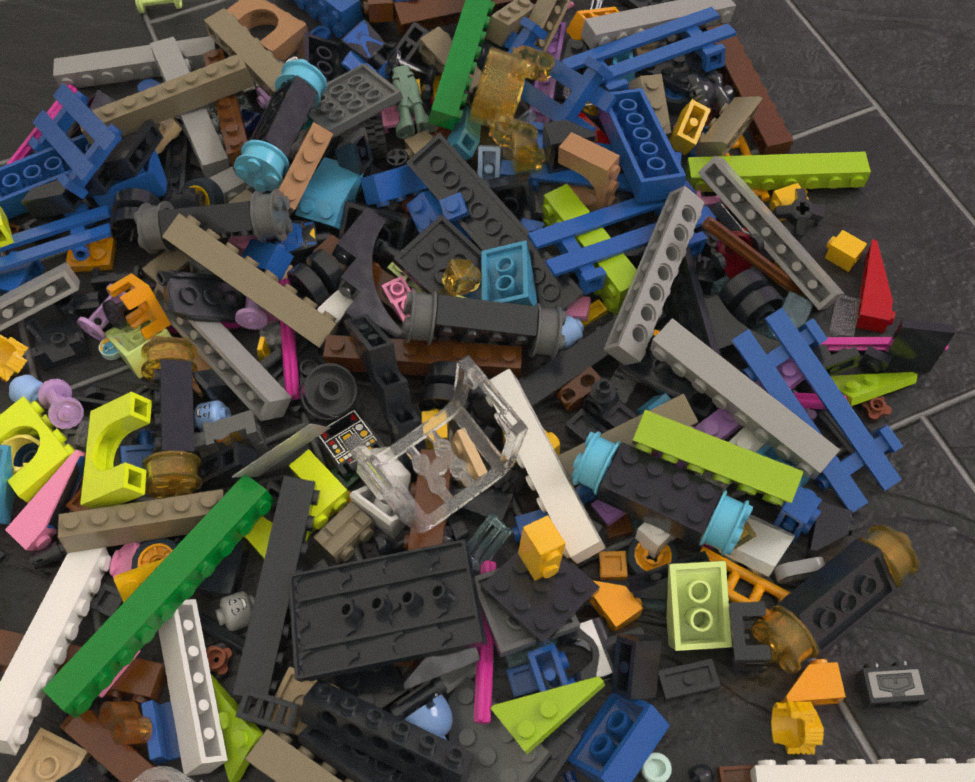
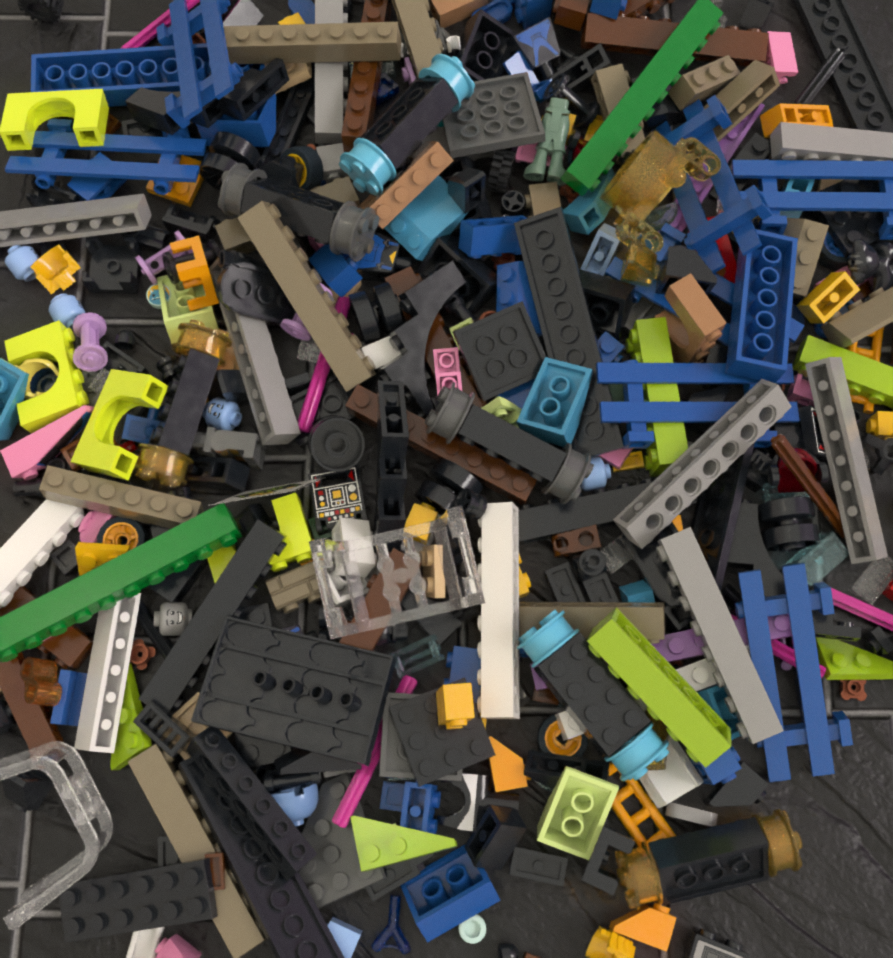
camera: 20 degrees right, 15 degrees up
(263, 349) = (296, 366): yellow piece -> none
(454, 207) = (539, 297): blue plate -> none
(461, 277) = (511, 381): clear yellow slope -> none
(613, 565) = (524, 728): light orange tile -> none

